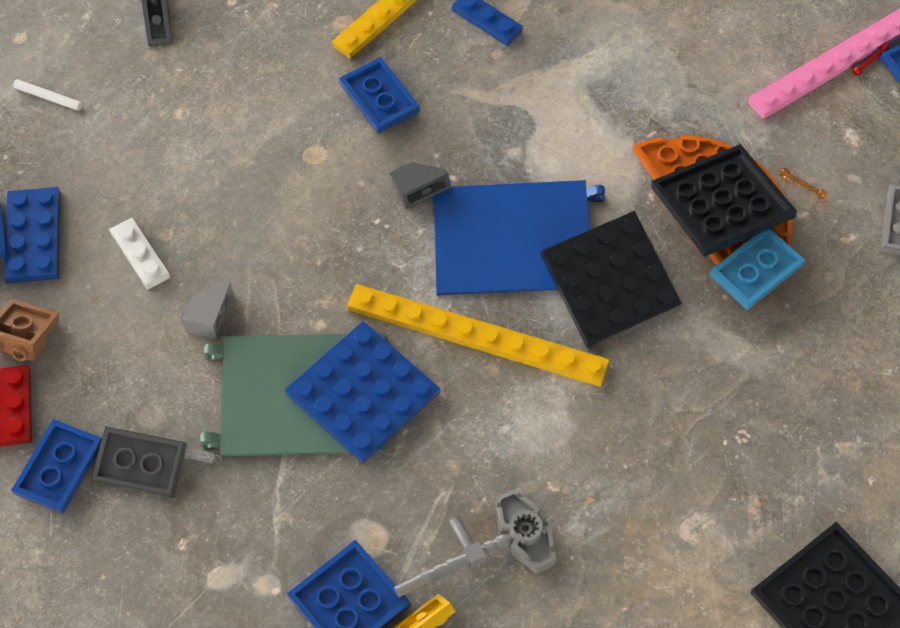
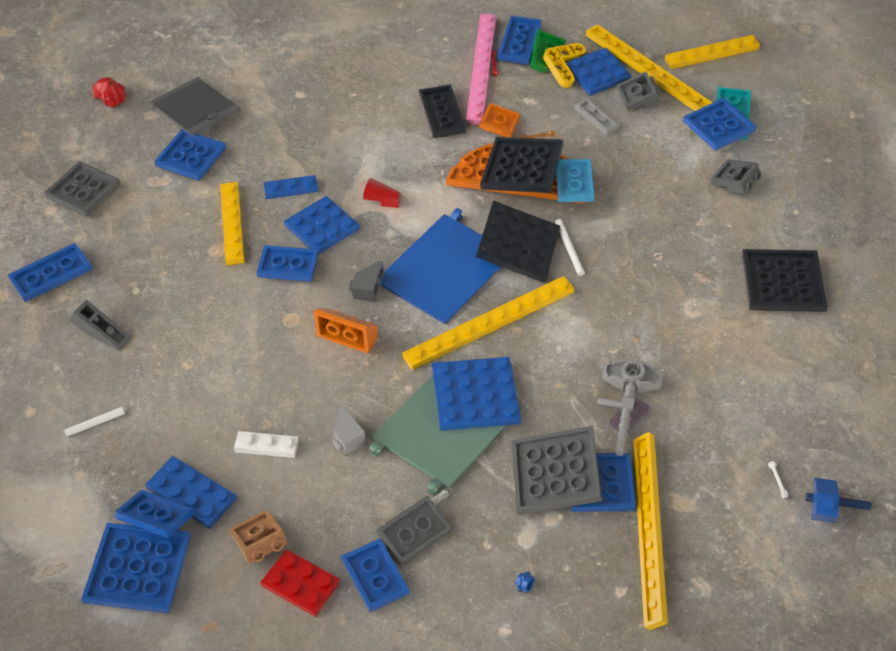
camera: 50 degrees left, 10 degrees down
(158, 614) = (525, 582): none -> blue plate
(319, 543) = (556, 470): none -> dark grey plate
(337, 209) = (345, 329): none -> orange slope
(462, 84) = (321, 224): none -> blue plate
(485, 572) = (639, 411): none -> tile
(558, 101) = (378, 191): none -> red slope
(661, 336) = (569, 246): none -> white bar
(737, 66) = (442, 111): none -> black plate
(781, 129) = (499, 120): none -> orange plate

